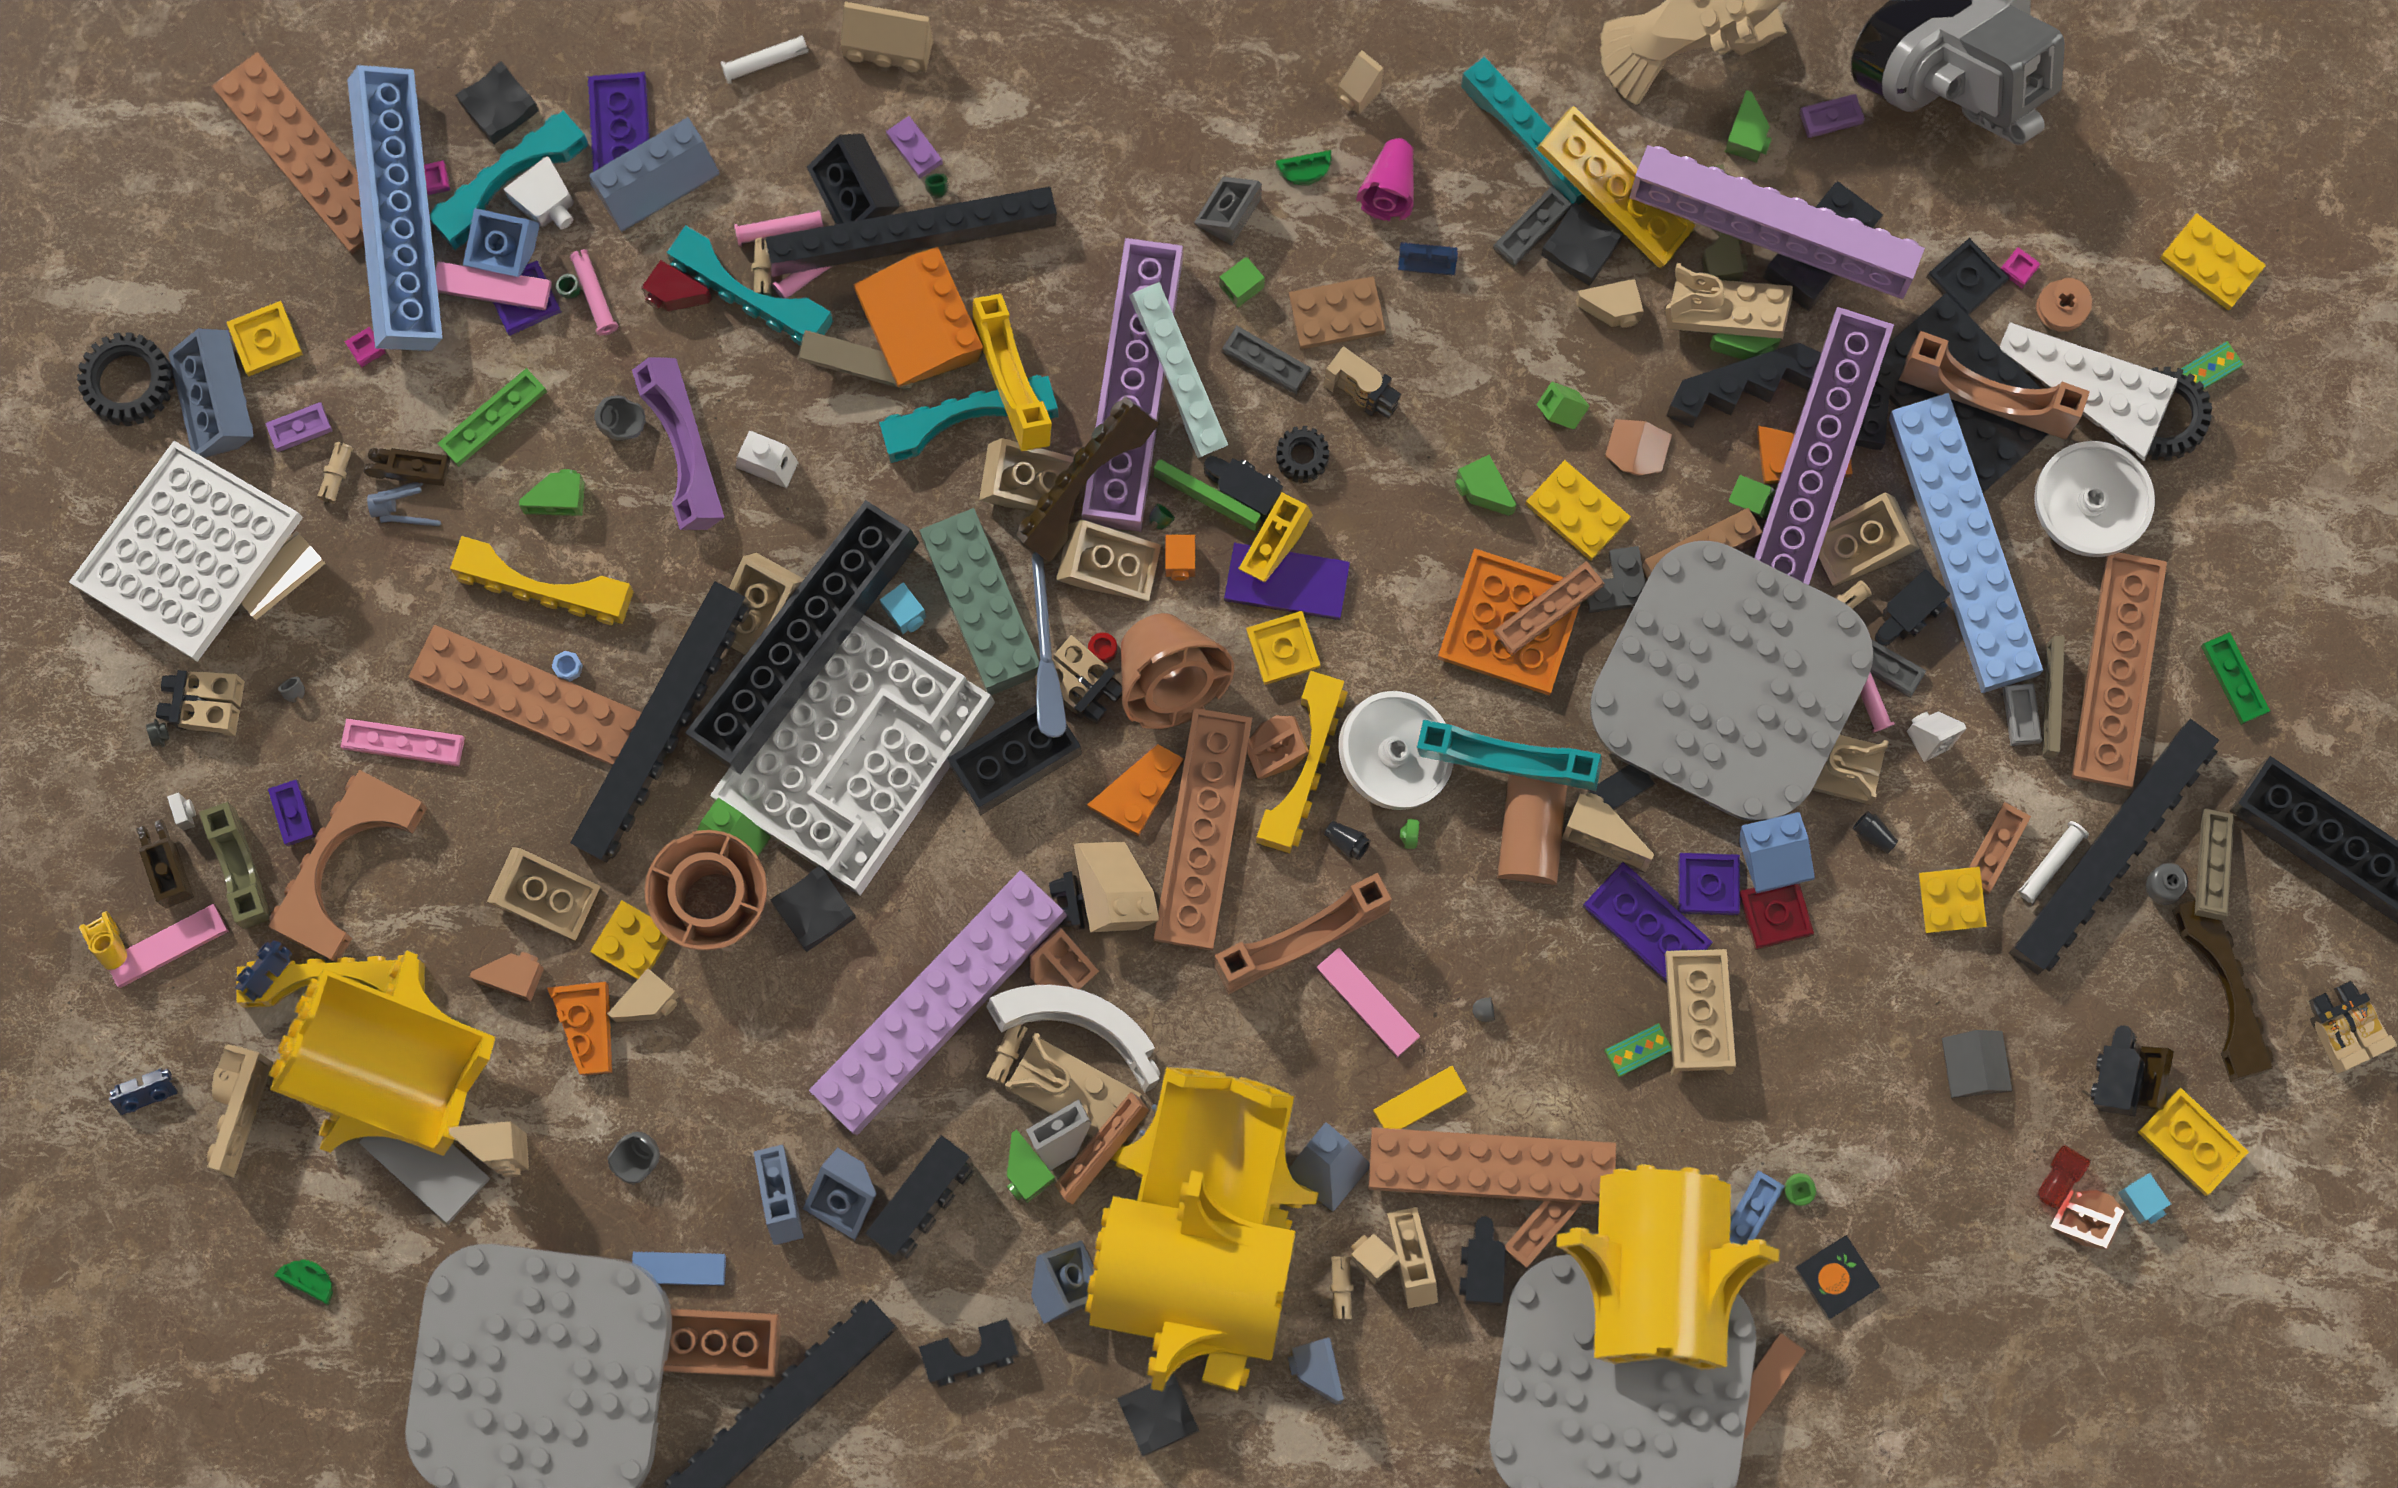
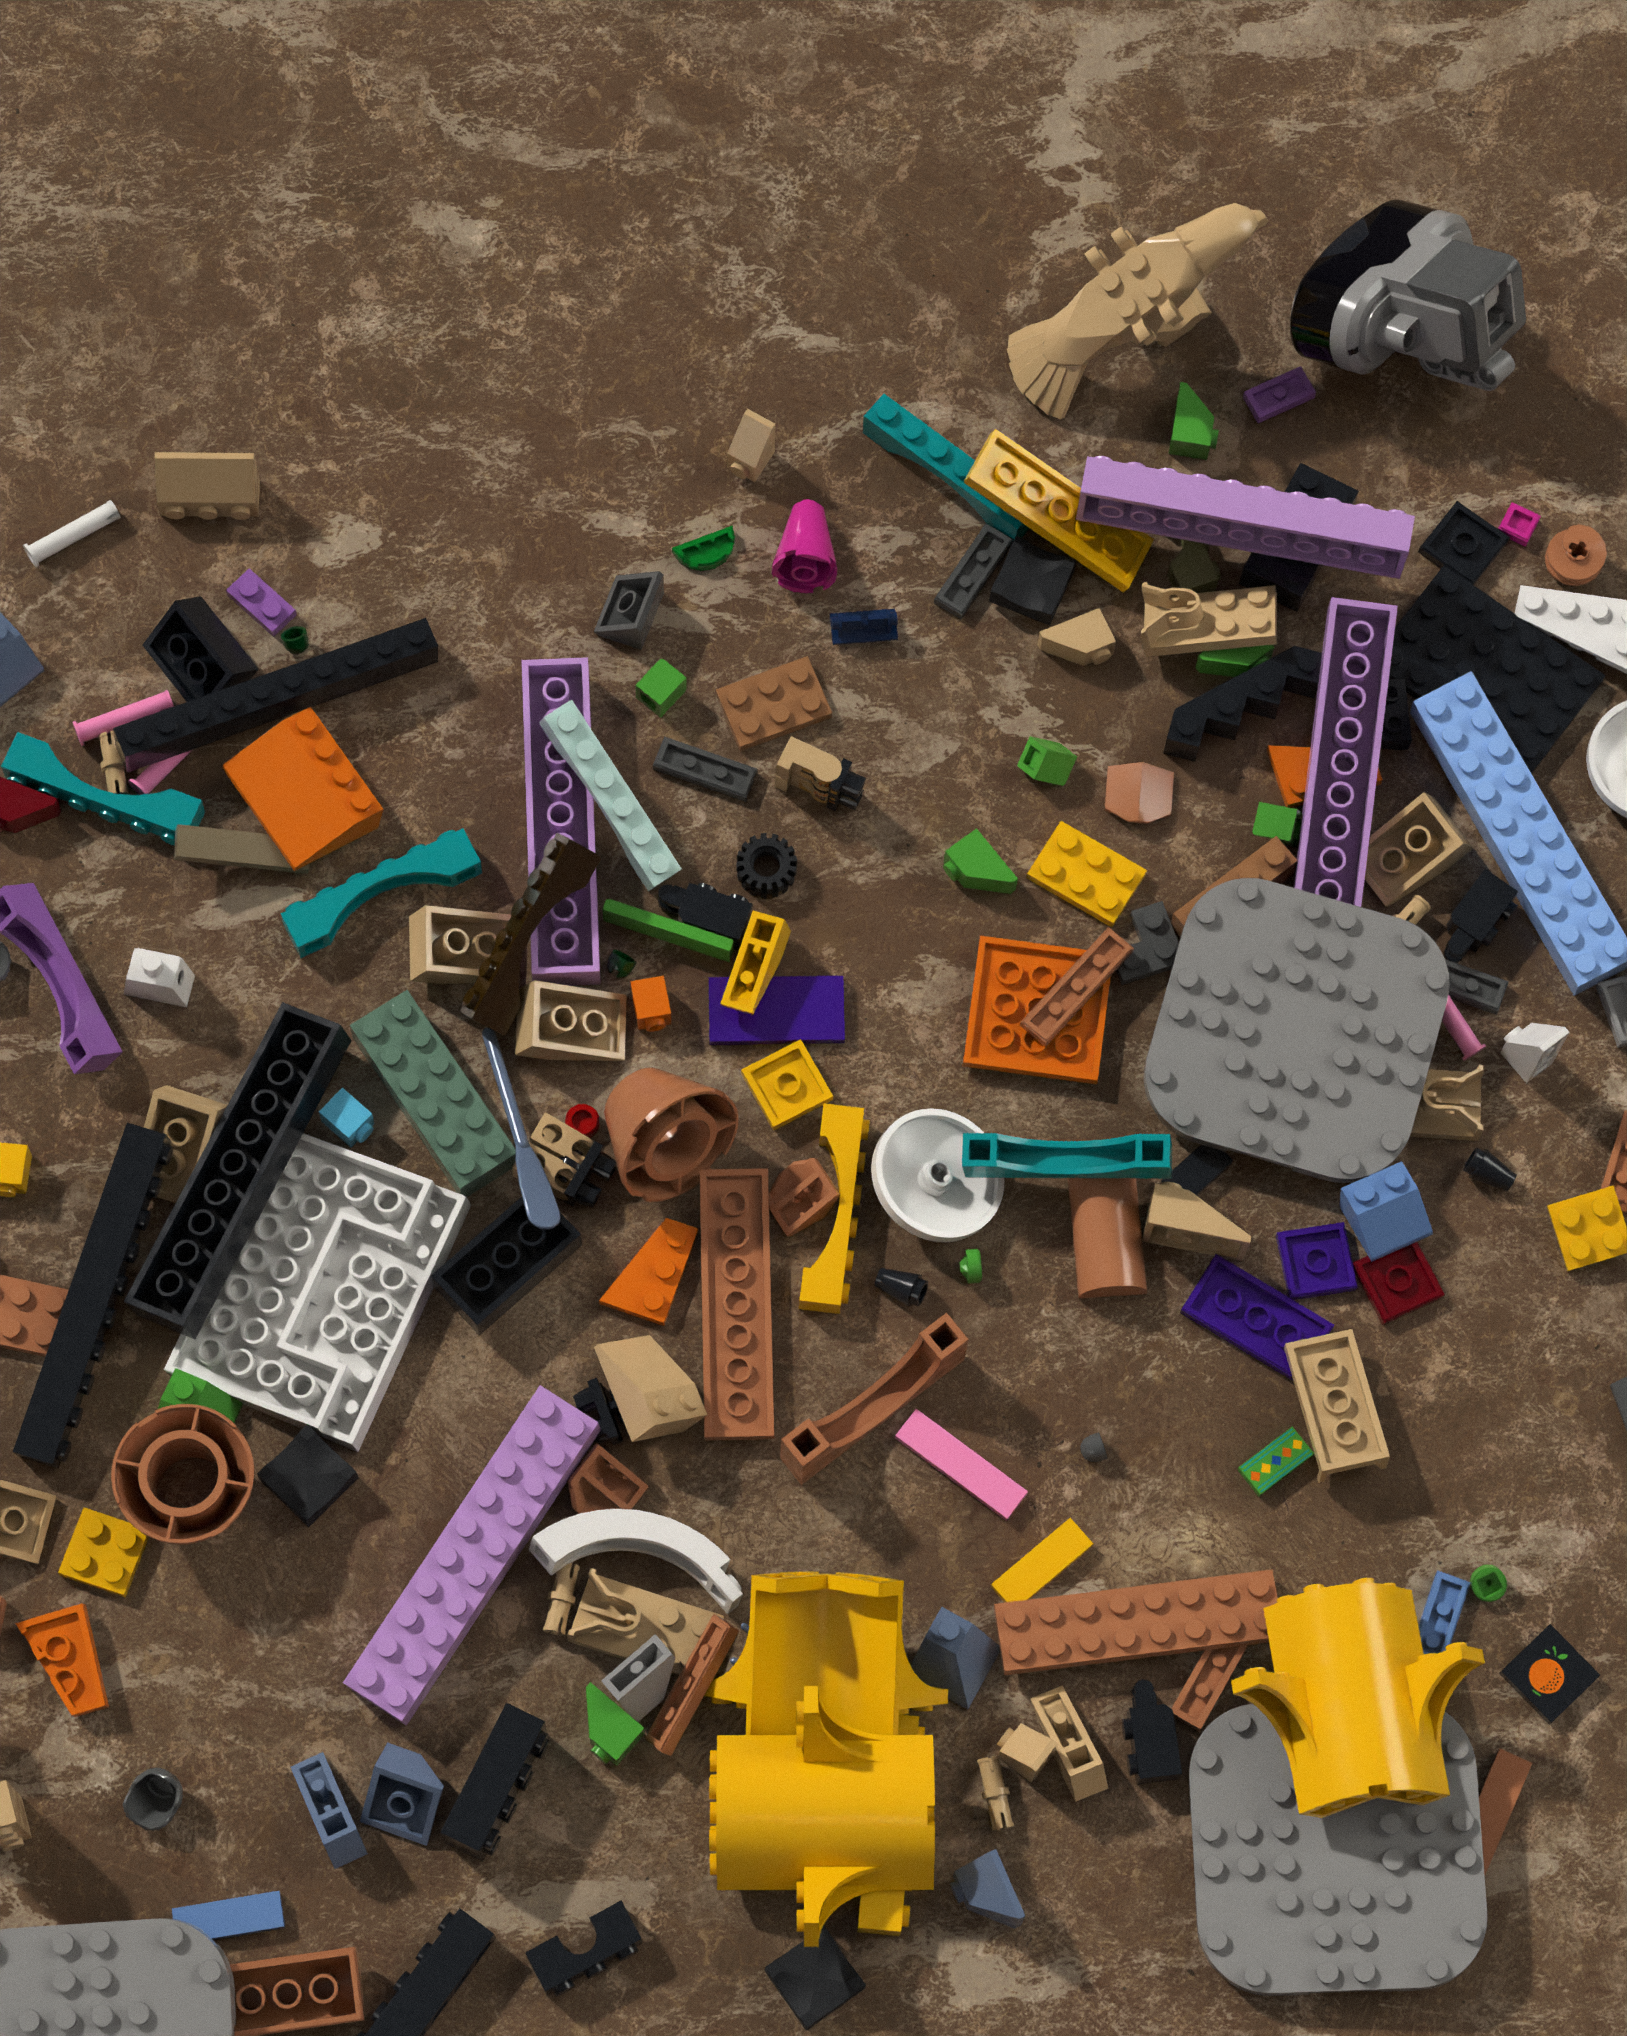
camera: 15 degrees left, 5 degrees down
(645, 1000) = (132, 1616): tan slope -> none
(1024, 410) = (447, 872): yellow arch -> none
(1061, 1281) = (675, 1847): sand blue slope -> none
(2047, 410) = (1582, 671): nougat arch -> none

